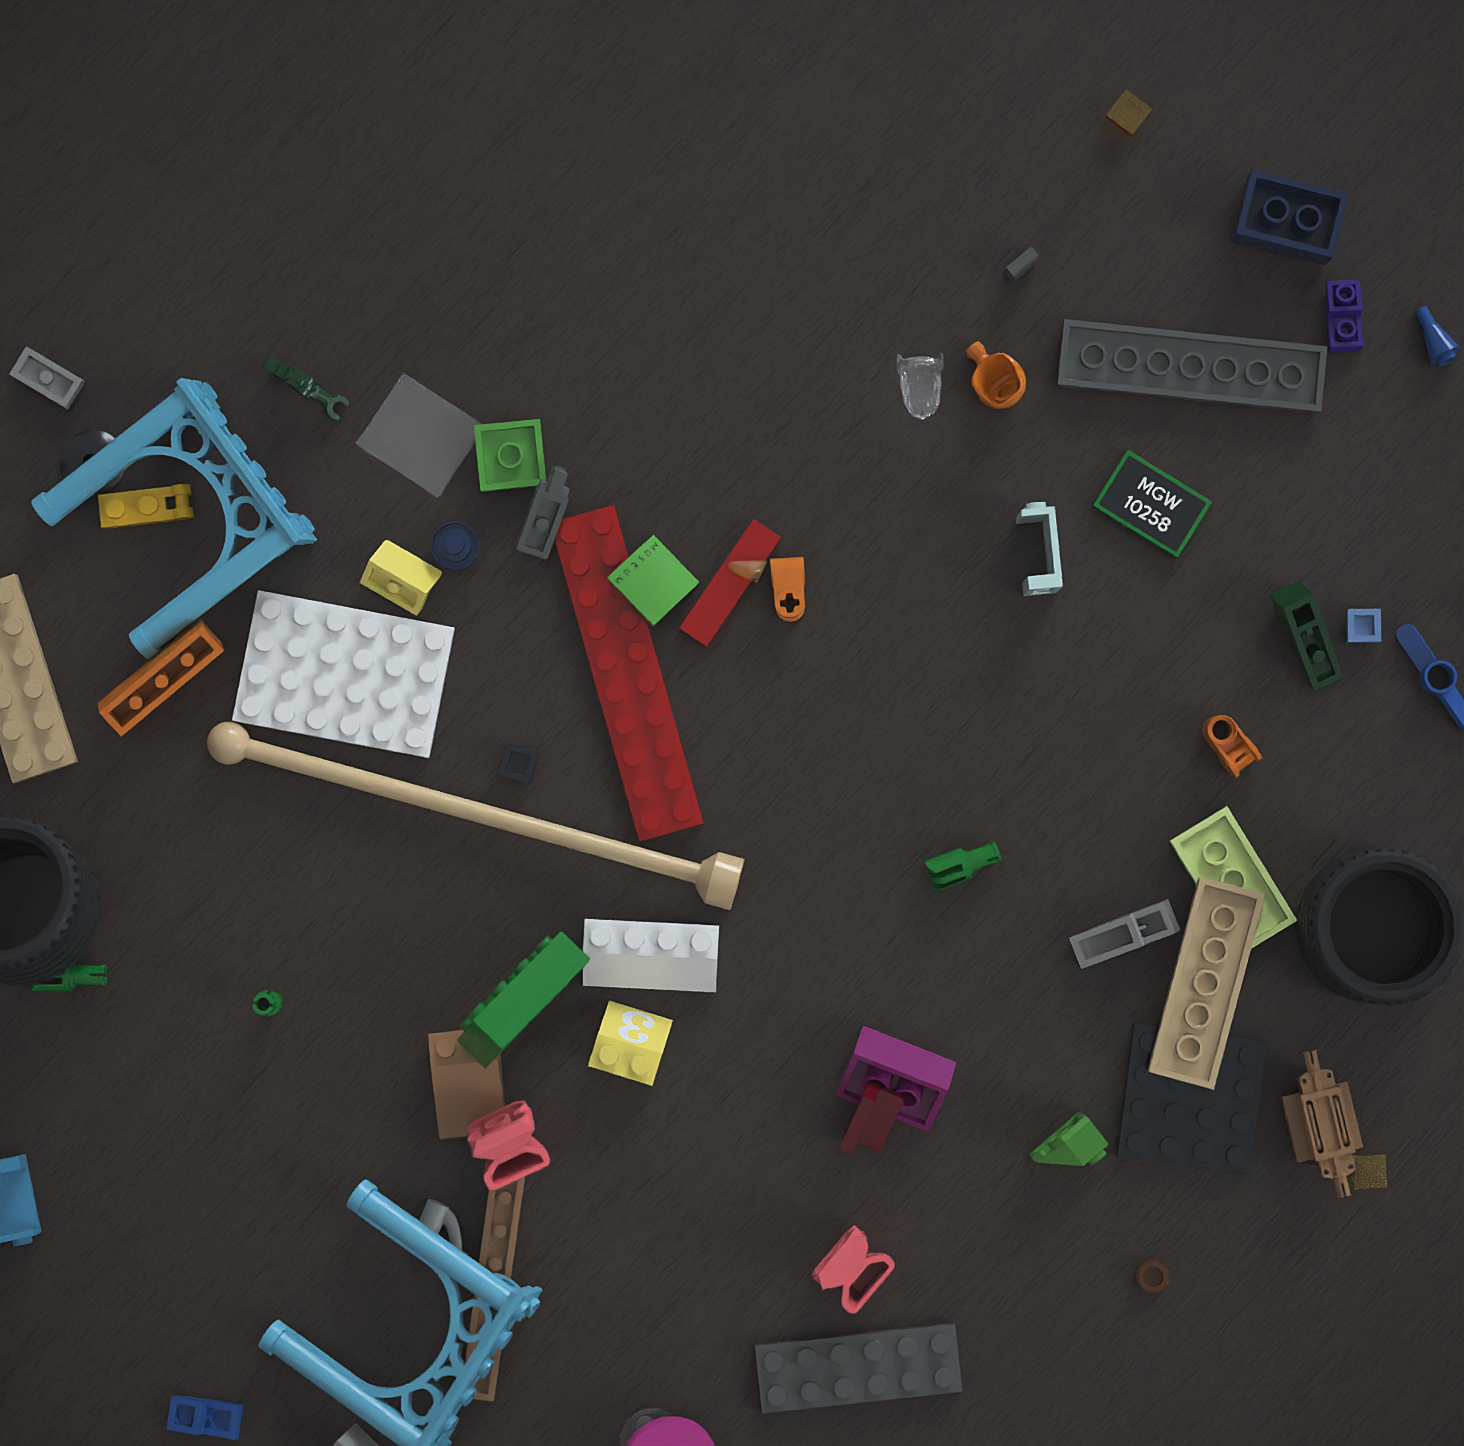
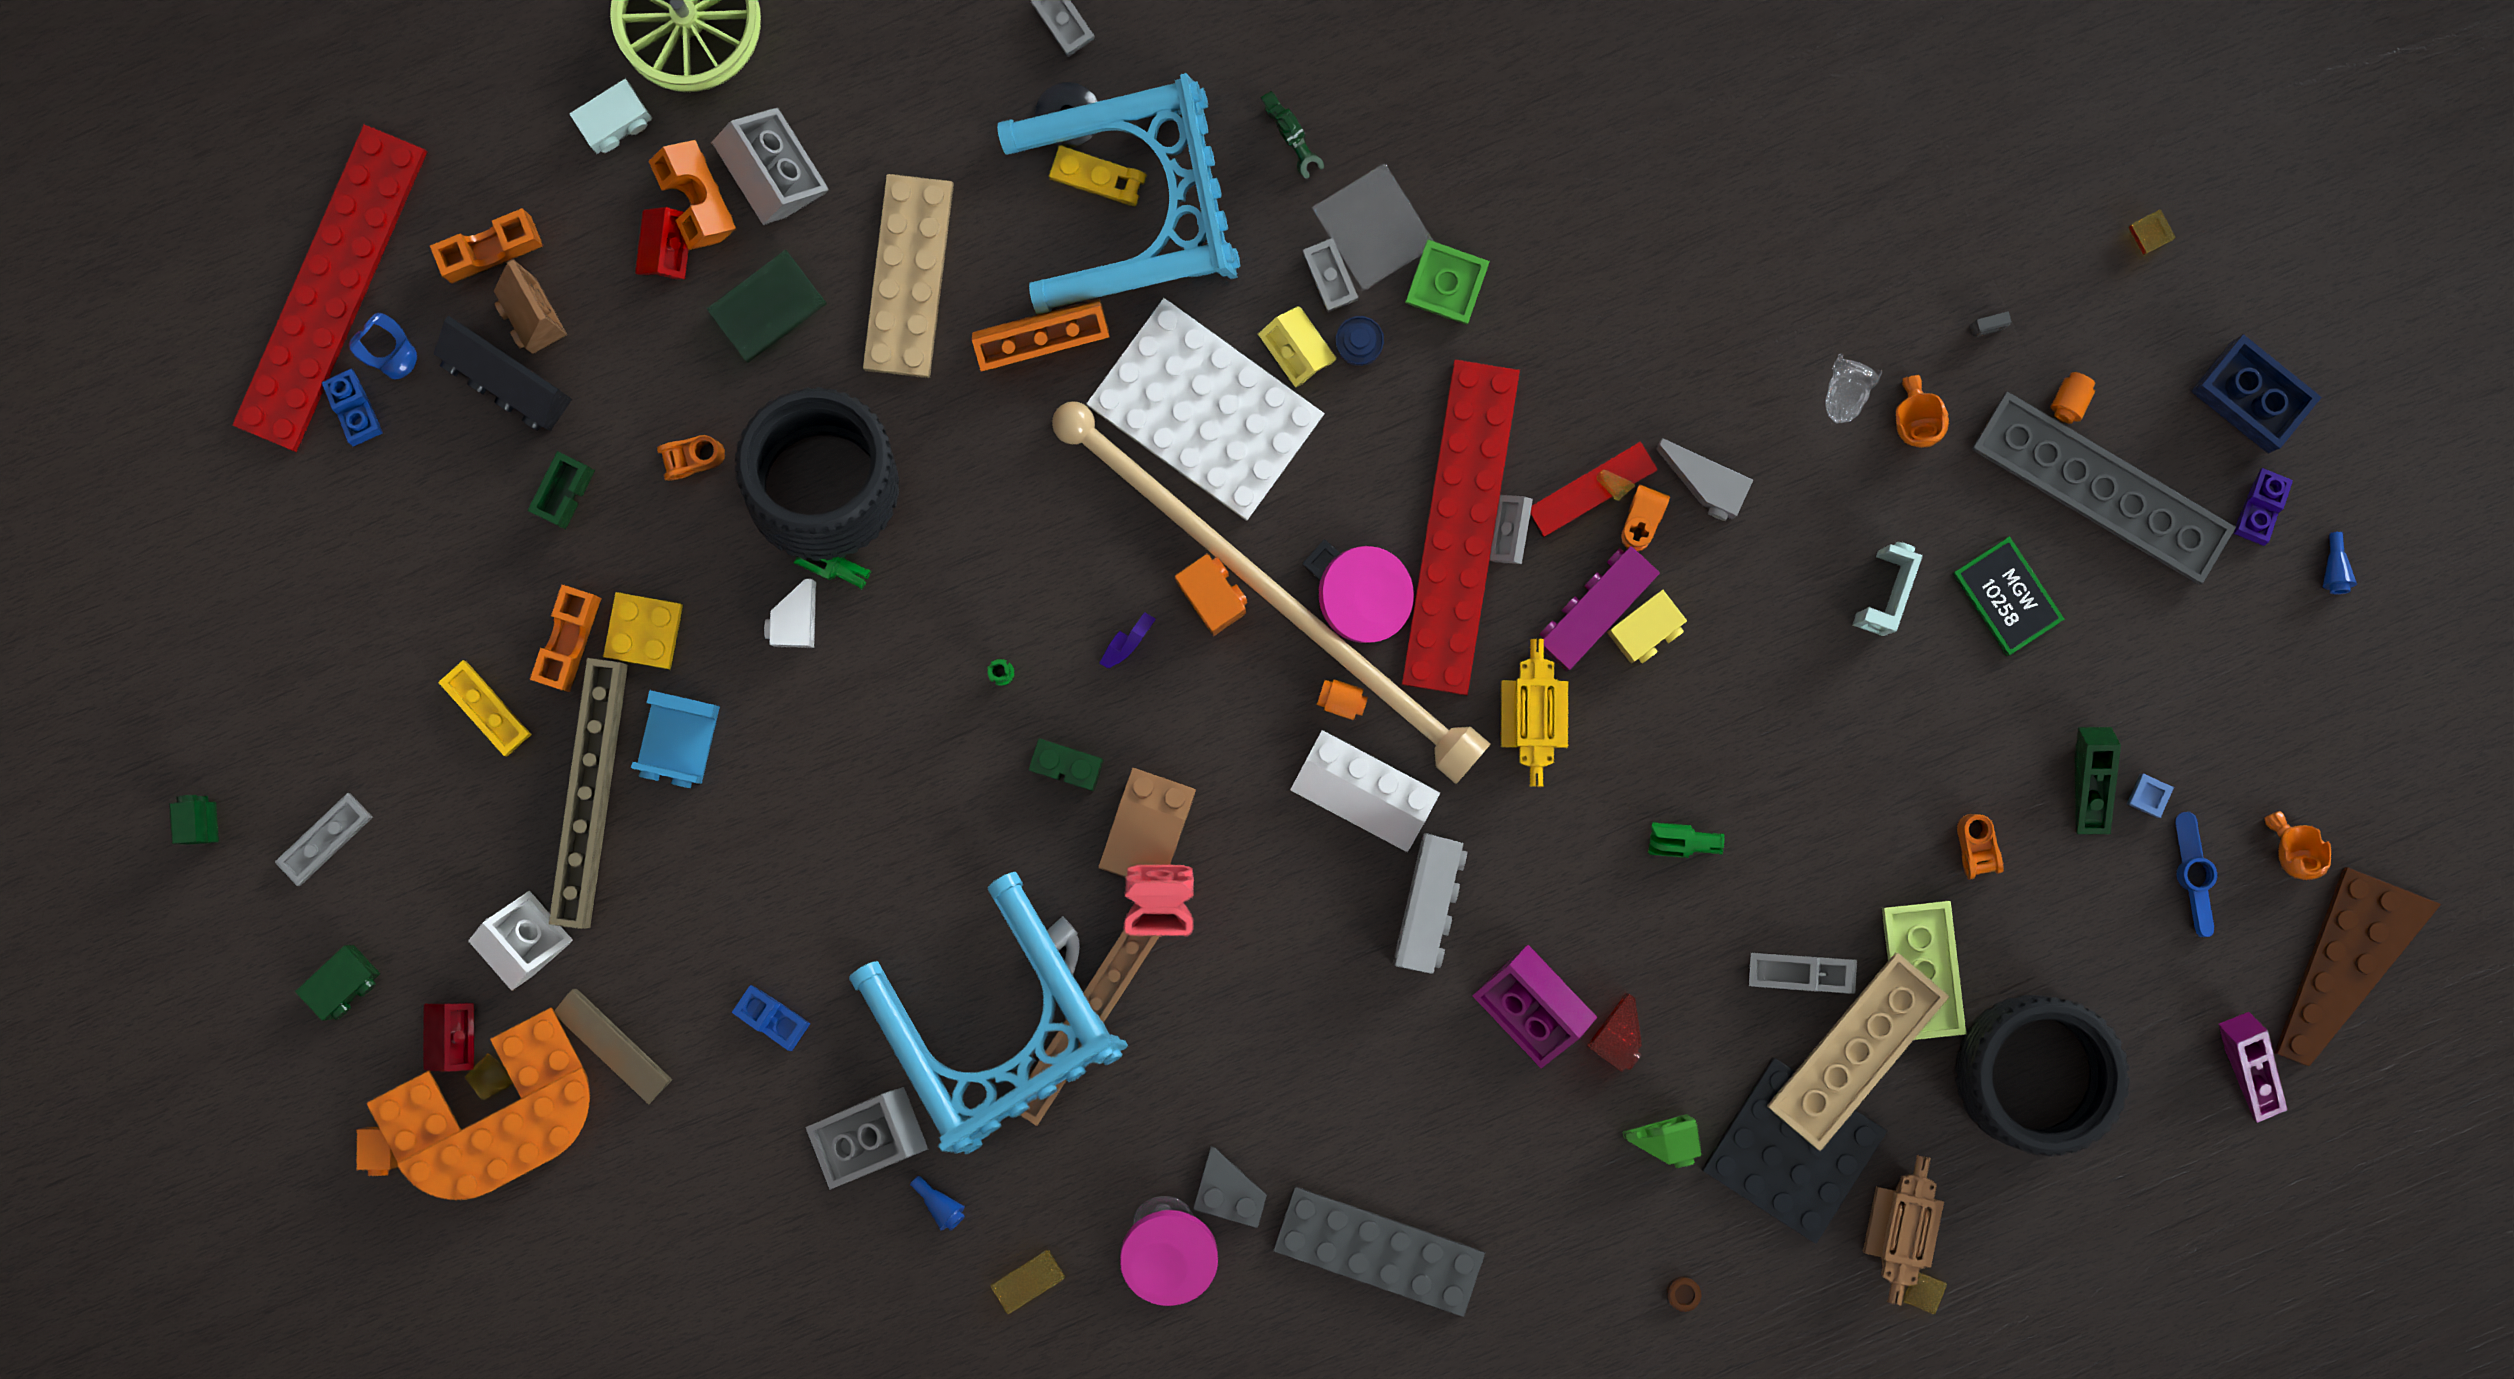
camera: 25 degrees right, 0 degrees up
(55, 1041) = (793, 618): none -> white slope
(356, 1059) = (1078, 767): none -> dark green piece
(369, 924) = (1124, 645): none -> dark purple slope
(400, 498) = (1330, 275): none -> light grey plate
(426, 842) = (1211, 594): none -> orange brick
(521, 998) = (1232, 774): green brick -> none
(544, 515) = (1453, 349): dark grey hinge -> none
(568, 775) = (1366, 594): none -> dark pink piece
(591, 881) = (1342, 699): none -> orange brick
(630, 1043) = (1310, 861): light yellow slope -> none
(652, 580) = (1523, 454): bright green slope -> none
(672, 654) = (1510, 529): none -> light grey plate
(696, 1378) = (1229, 1192): none -> dark grey wing
(756, 1032) = (1428, 904): none -> light grey slope
(772, 812) = (1535, 713): none -> yellow piece
(786, 688) = (1599, 608): none -> magenta brick
(836, 527) = (1710, 483): none -> light grey slope
(838, 685) = (1647, 627): none -> light yellow brick
(853, 1269) = (1418, 1159): coral piece -> none
(872, 1118) = (1497, 1031): dark red panel -> none
(985, 1070) = (1619, 1036): none -> clear red slope
(1127, 297) = (2073, 398): none -> orange brick

